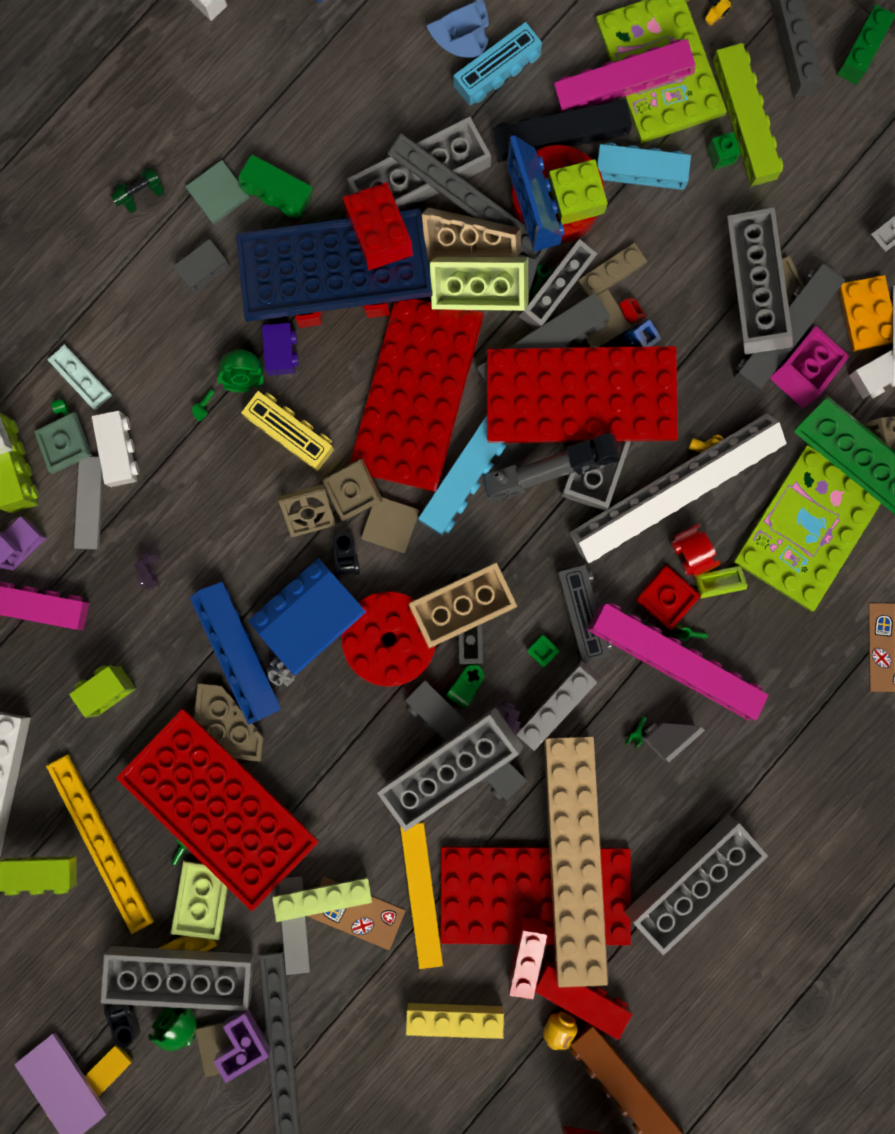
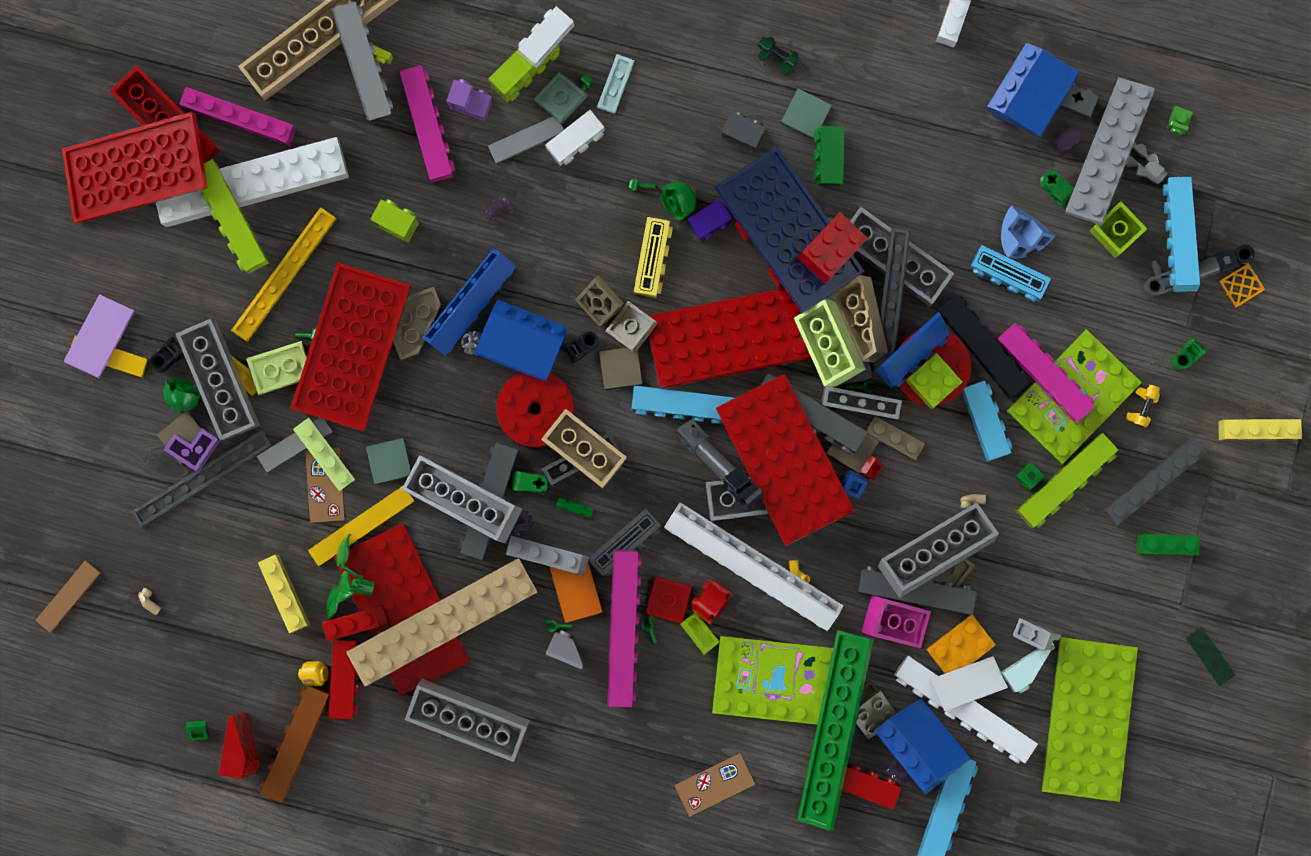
camera: 60 degrees right, 0 degrees up
(365, 828) = (388, 461): none -> sand green tile
(487, 960) = (344, 589): none -> green plant
(518, 650) = (574, 507): none -> green axle
(542, 651) = (582, 526): green plate -> none
(614, 695) = (576, 594): none -> orange tile
(717, 226) = (966, 501): none -> tan arm

